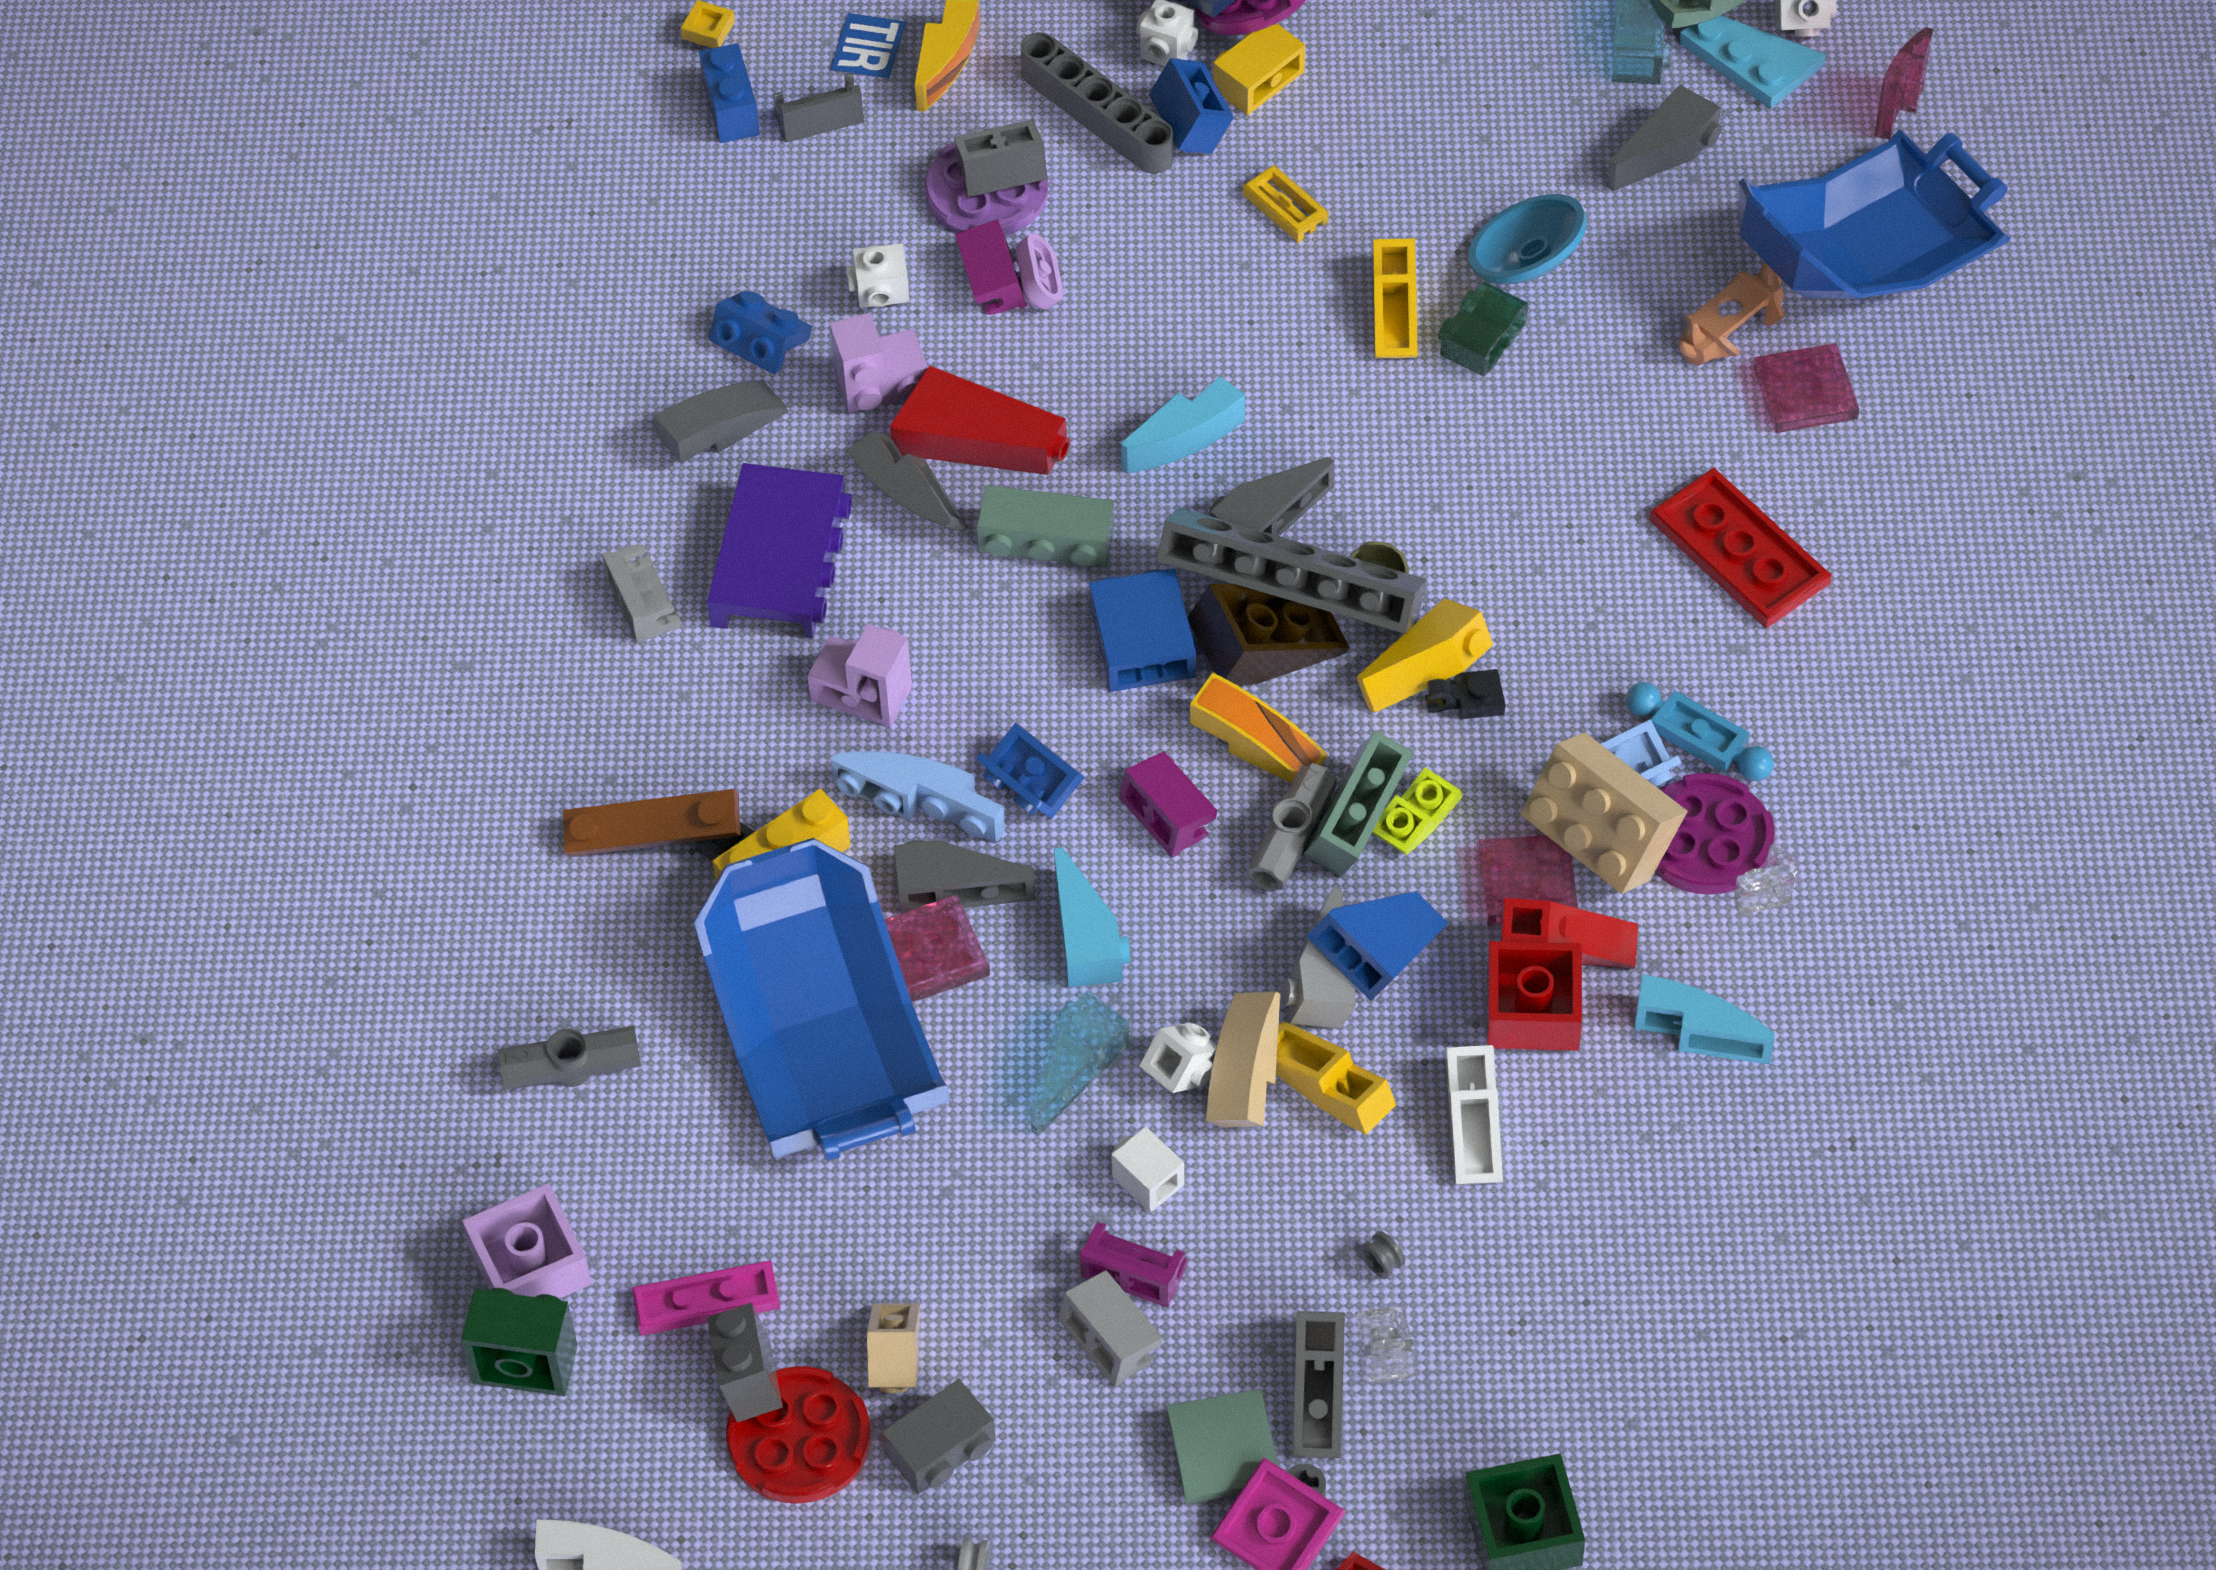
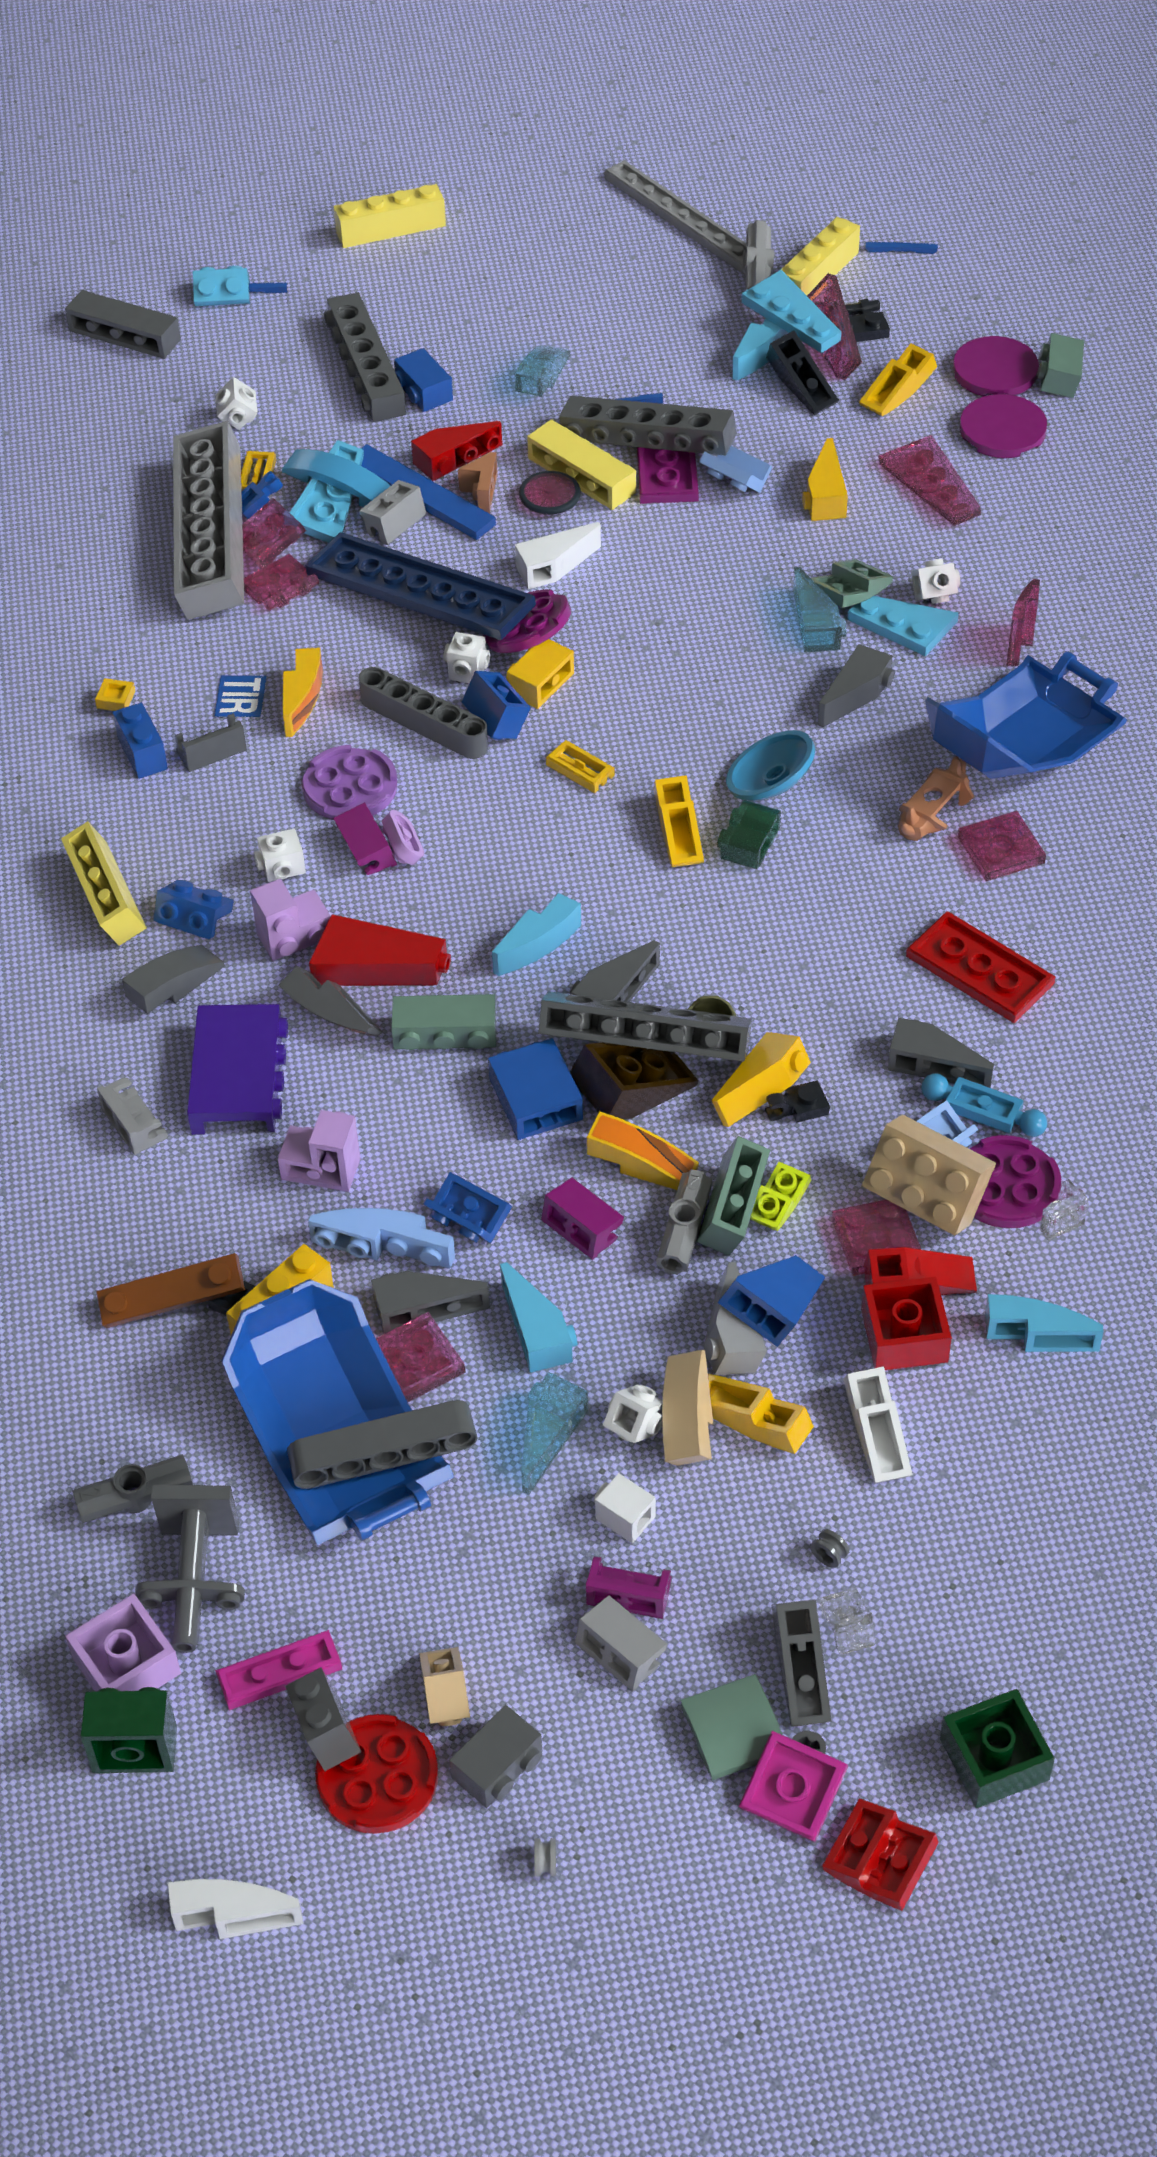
camera: 10 degrees left, 5 degrees down
(635, 1100) = (194, 1515): none -> dark grey piece
(652, 283) = (103, 883): none -> light yellow brick
(870, 1049) = (381, 1444): none -> dark grey beam
(1001, 157) = (358, 758): dark grey hinge -> none
(1645, 651) = (926, 1050): none -> dark grey slope

